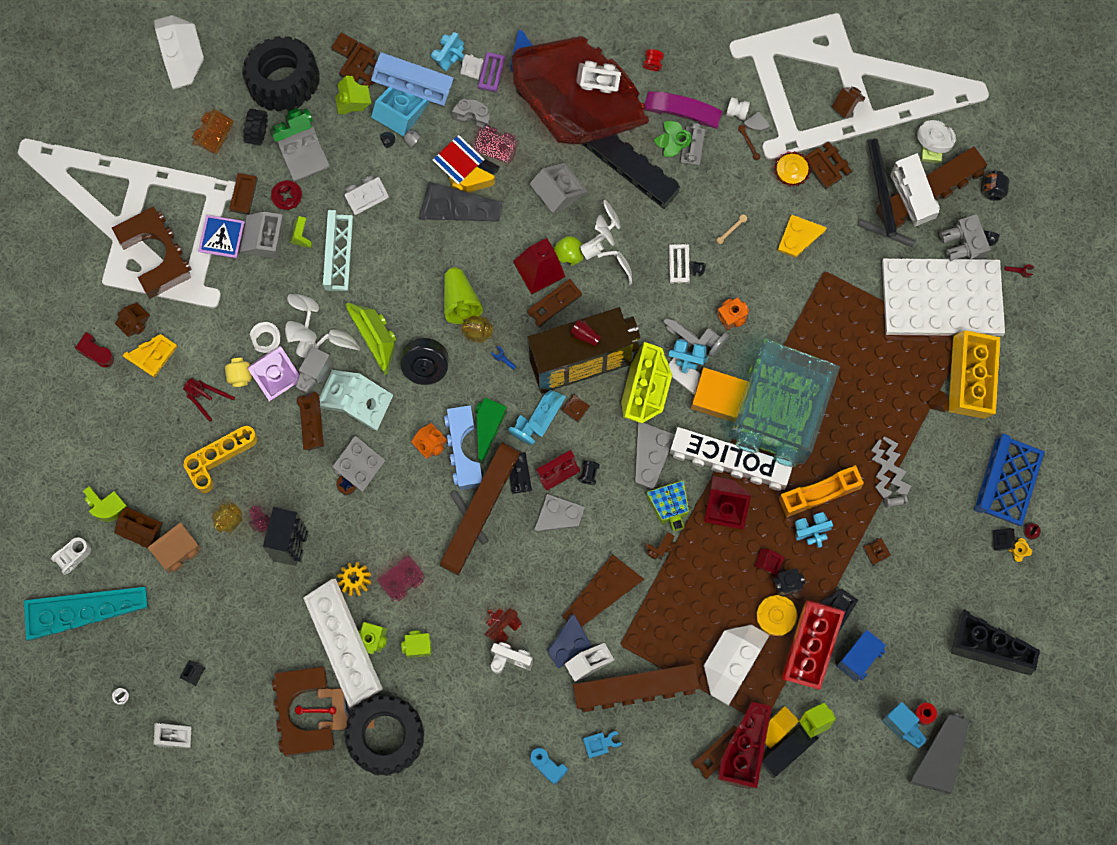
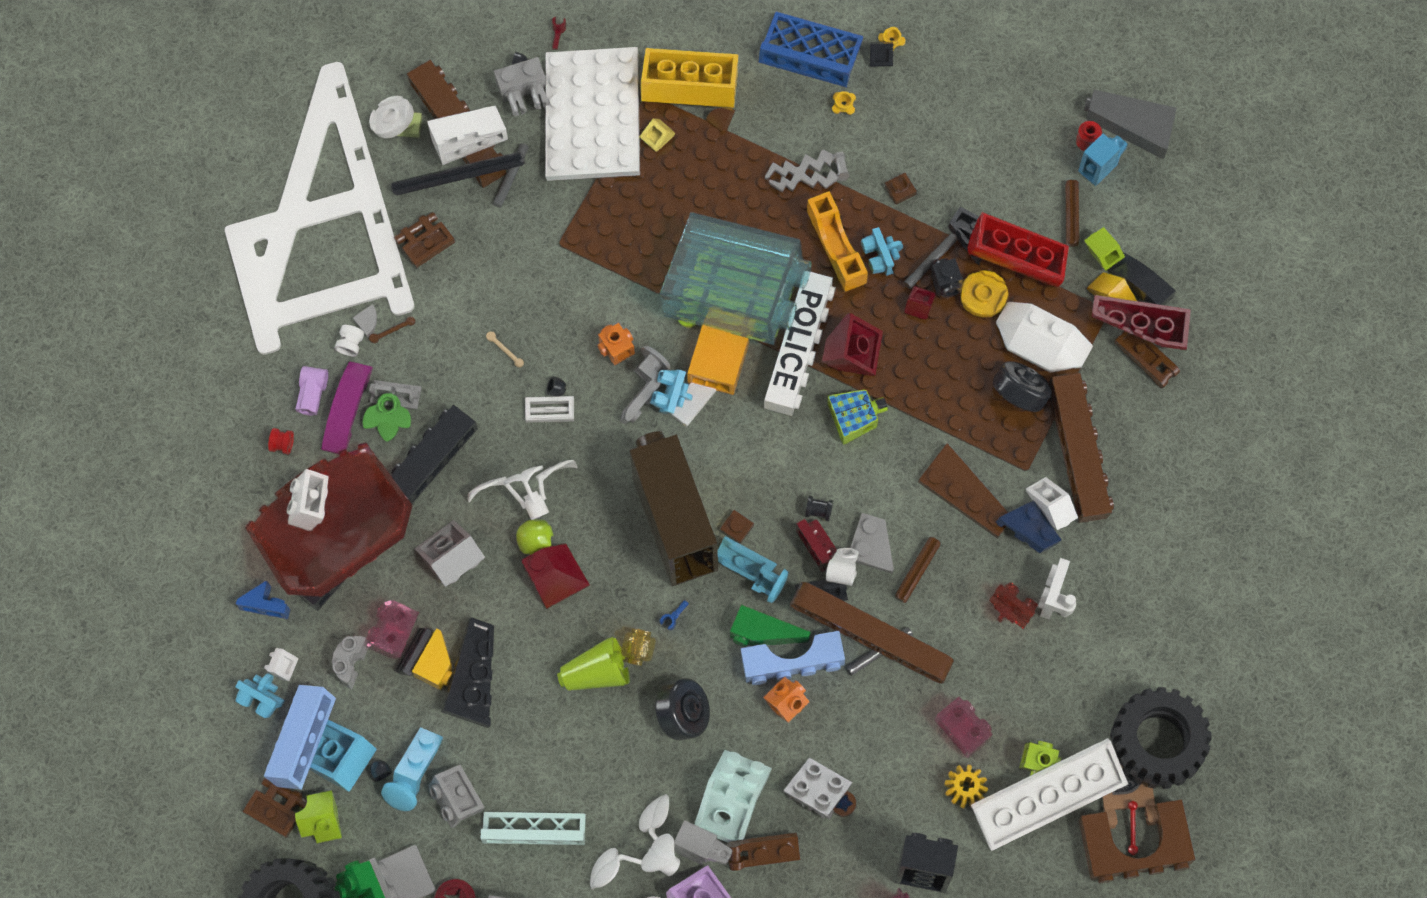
camera: 90 degrees left, 5 degrees down
(296, 235) = (508, 880): lime tile -> none
(344, 45) = (244, 833): reddish brown plate -> none
(374, 334) = (647, 774): lime wedge -> none
(387, 162) = (408, 774): none -> medium azure piece
(411, 137) = (379, 737): light grey hinge -> none
(417, 645) = (1044, 705): lime brick -> none
(458, 159) = (413, 673): sticker -> none
(488, 87) = (297, 653): medium lavender tile -> none
(534, 486) = (842, 566): none -> white piece
(536, 550) = (917, 569): none -> reddish brown axle
(541, 761) = (1176, 553): dark azure leg -> none
(554, 302) = (601, 554): reddish brown plate -> none
(585, 333) = (666, 487): dark red cone -> none
(597, 744) = (1148, 491): dark azure plate -> none
(646, 384) = (713, 442): neon yellow wedge -> none
(652, 452) = (792, 437): light grey wing -> none
(665, 546) = (906, 418): reddish brown bracket -> none
(689, 640) = (1022, 386): none -> black wheel
(701, 82) = (311, 383): none -> lavender piece
(792, 168) = (430, 276): yellow piece -> none
(799, 235) = (514, 272): yellow wing -> none
(807, 572) = (931, 259): none -> dark grey bar
(847, 101) = (343, 214): reddish brown bracket -> none
(854, 697) = (1072, 213): none -> reddish brown axle
(862, 656) = (1028, 200): blue container -> none
(923, 349) = (657, 134): none -> light yellow slope
(961, 502) = (840, 97): none -> yellow plate
(987, 644) = (1003, 74): black wedge -> none
(996, 186) = (454, 54): black head -> none
(1028, 528) = (866, 29): dark red hinge -> none

